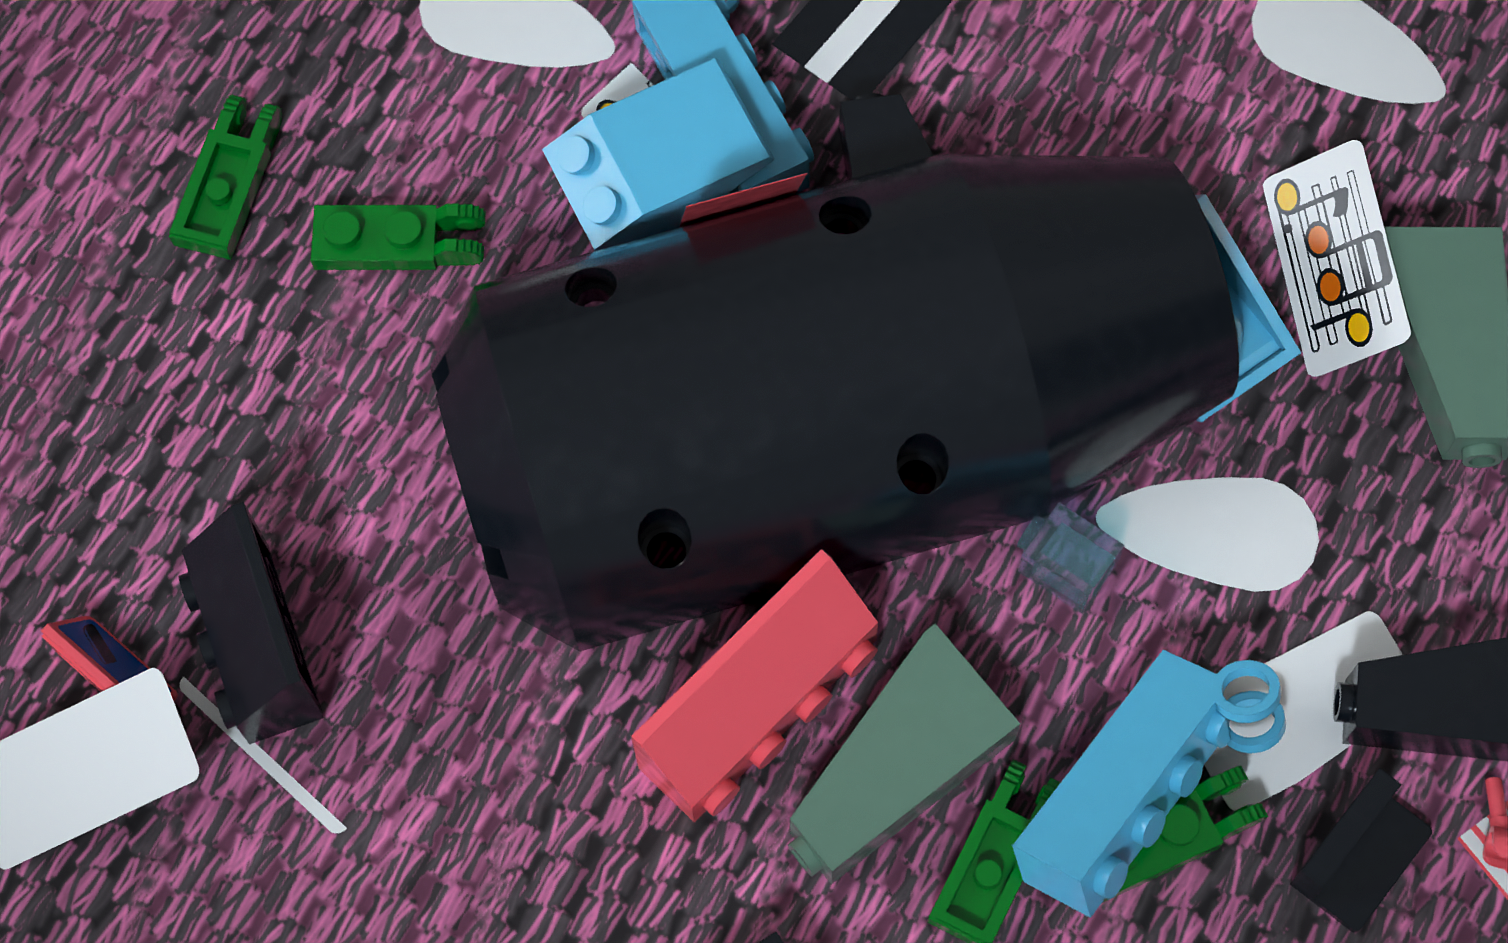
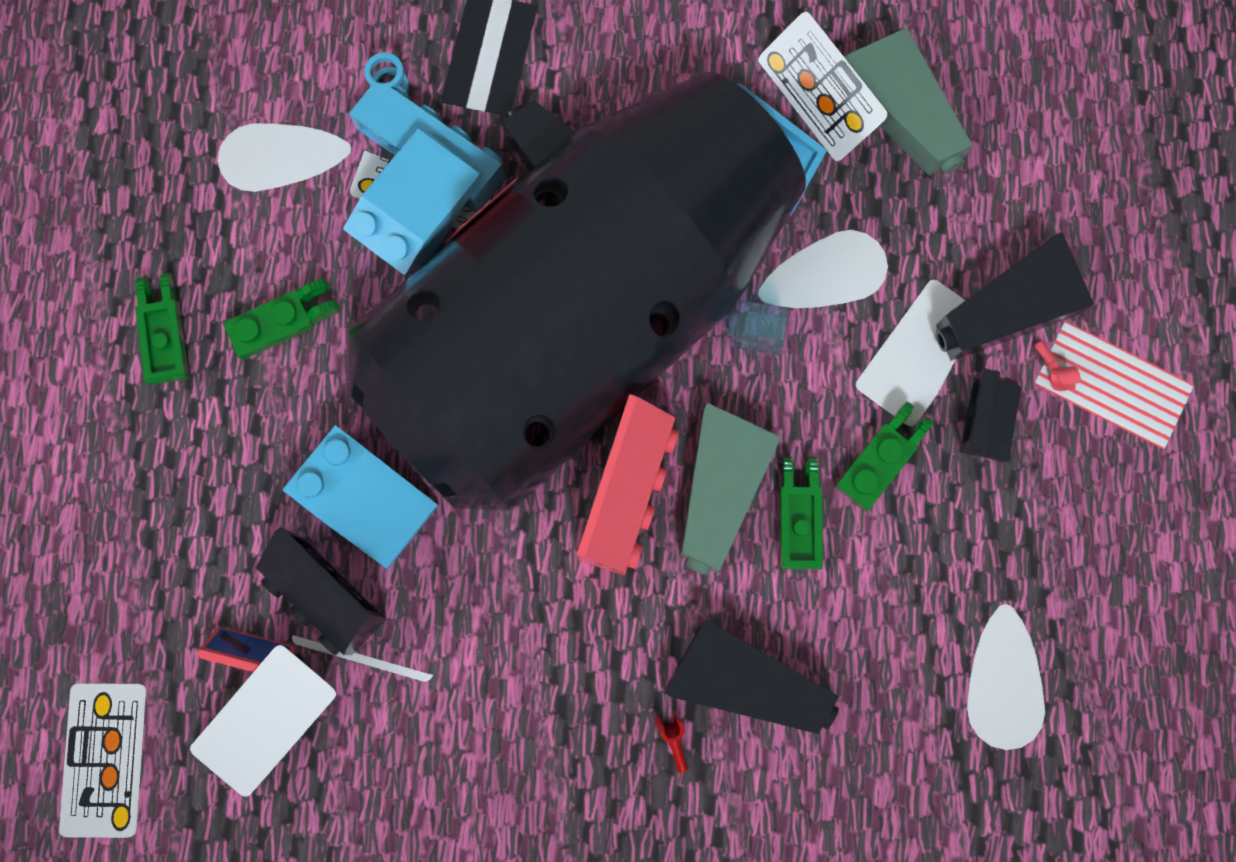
camera: 30 degrees left, 10 degrees up
(376, 527) = (360, 497): none -> medium azure slope
(1136, 773) = (856, 434): medium azure hinge -> none

